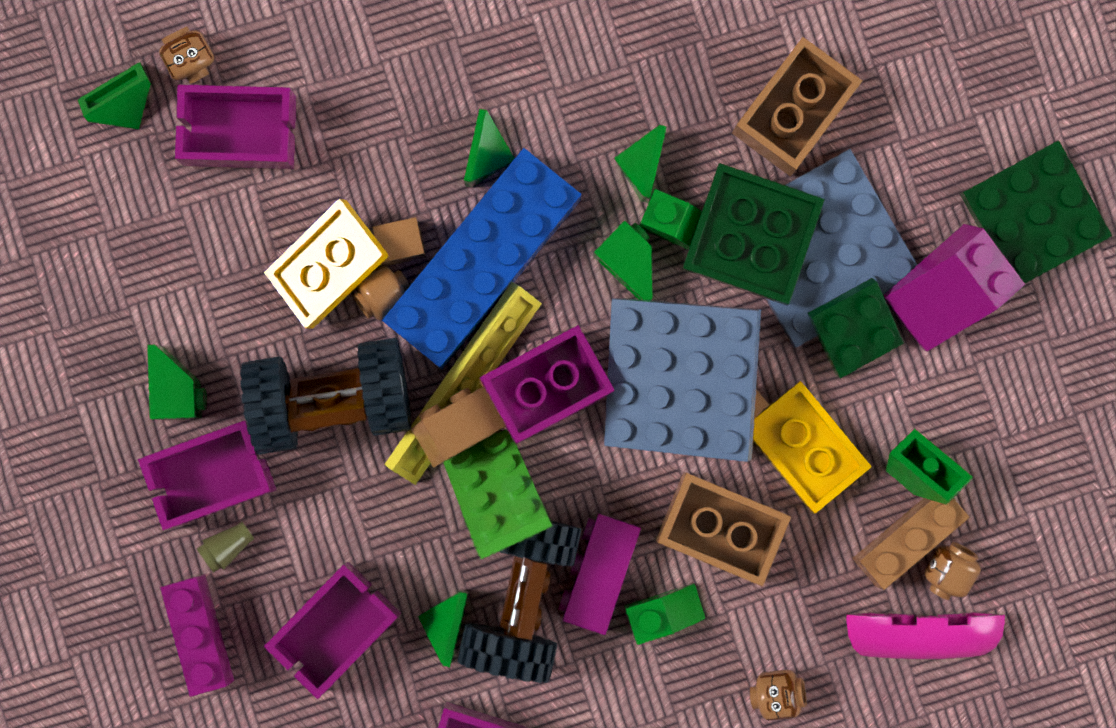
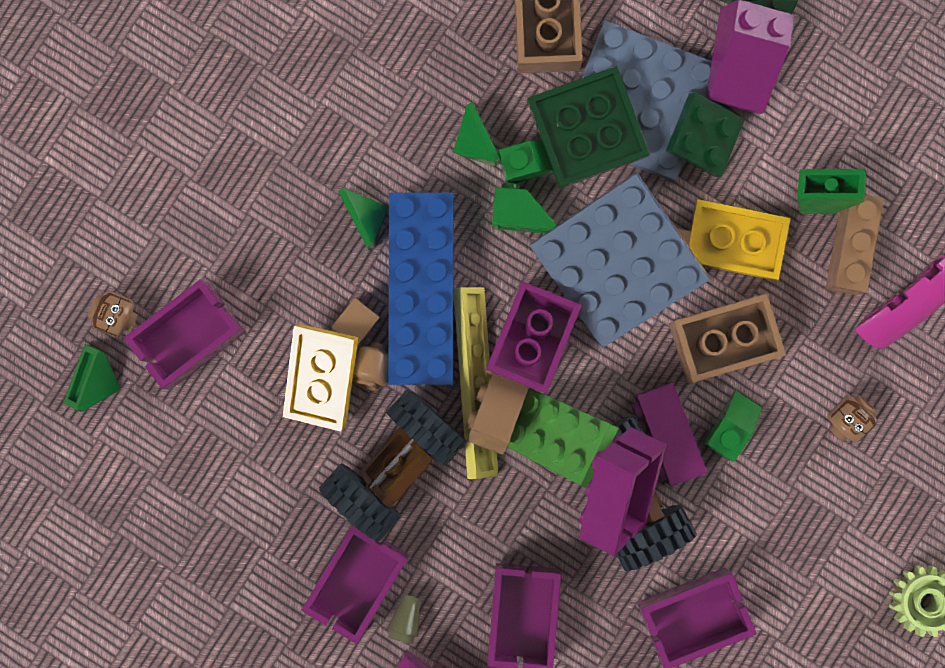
camera: 25 degrees left, 0 degrees up
(172, 388) = (284, 543): green slope -> none
(443, 625) = (595, 560): green slope -> none
(509, 583) = (621, 490): none -> magenta piece
(952, 571) = (899, 243): medium nougat head -> none

